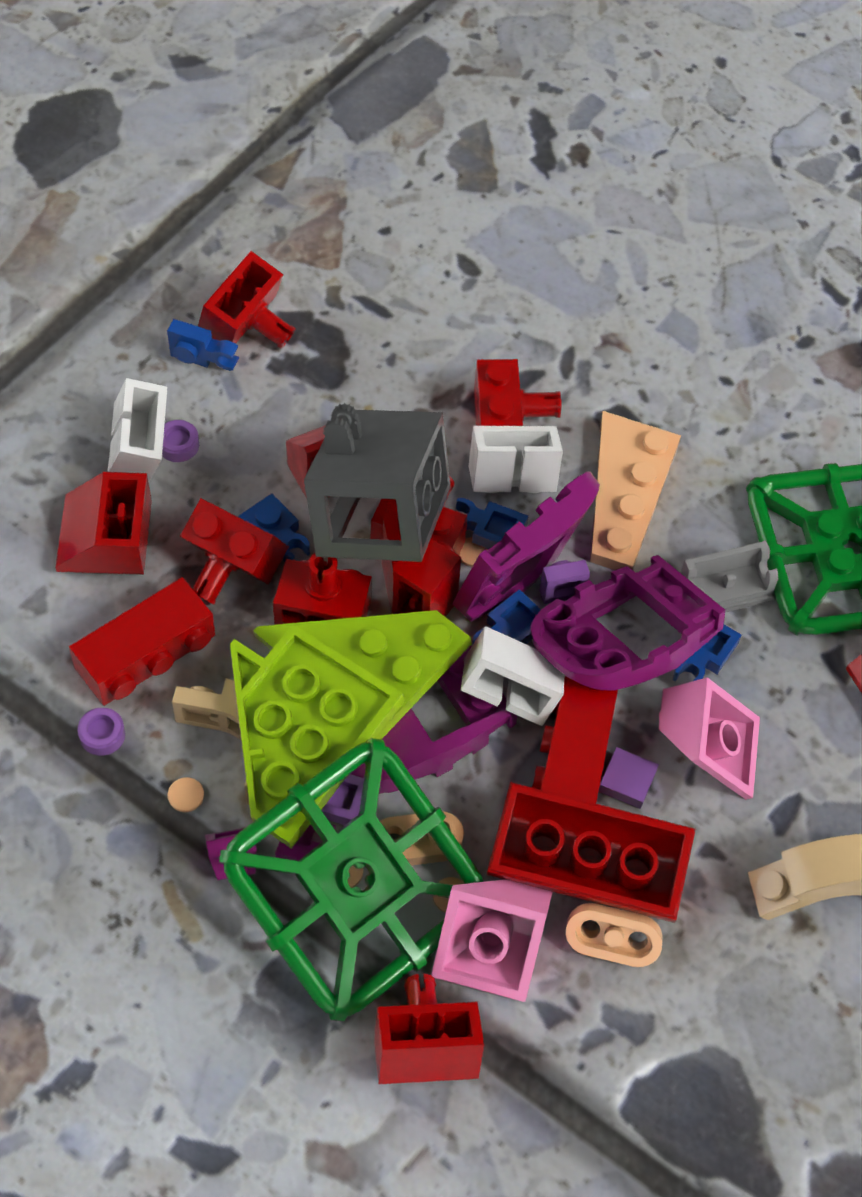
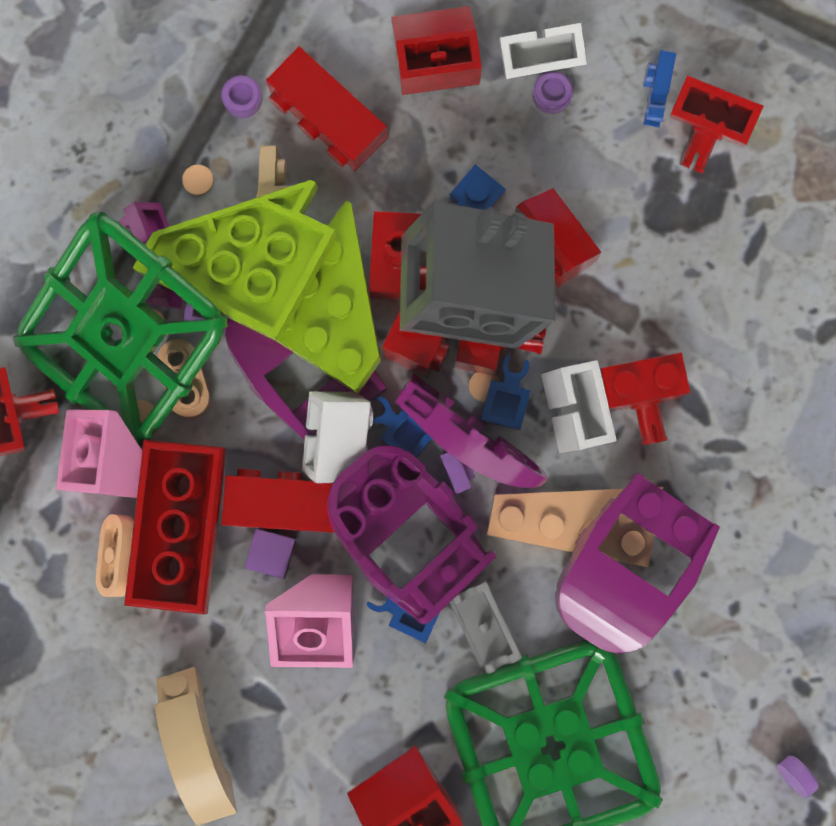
camera: 90 degrees right, 25 degrees up
(230, 546) = (433, 163): red brick -> none
(708, 466) = (609, 601): none -> magenta slope

